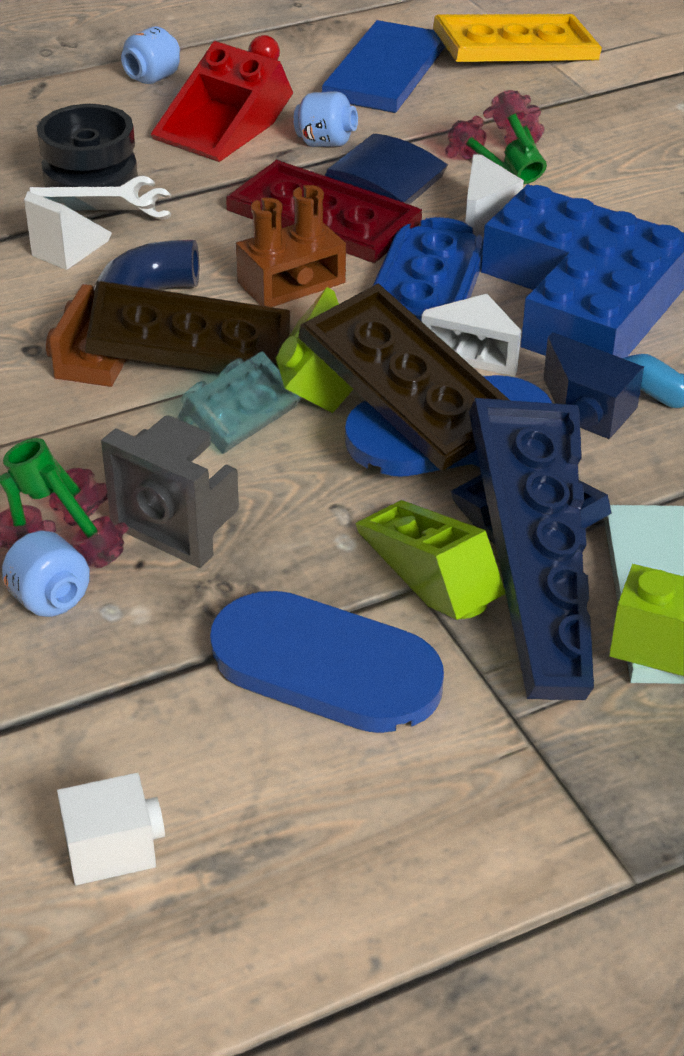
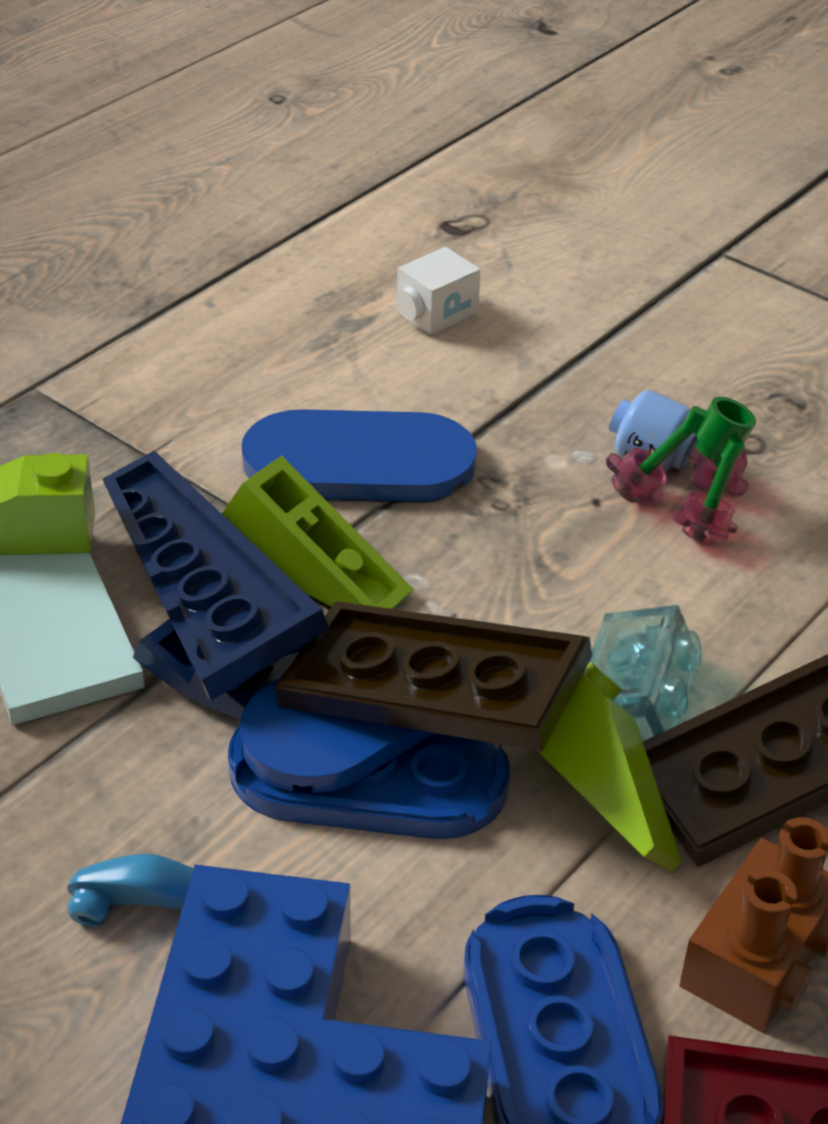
camera: 155 degrees right, 0 degrees up
(164, 493) = (601, 492): flat silver panel -> none
(478, 333) = (412, 875): white slope -> none
(594, 380) = (213, 822): dark blue slope -> none

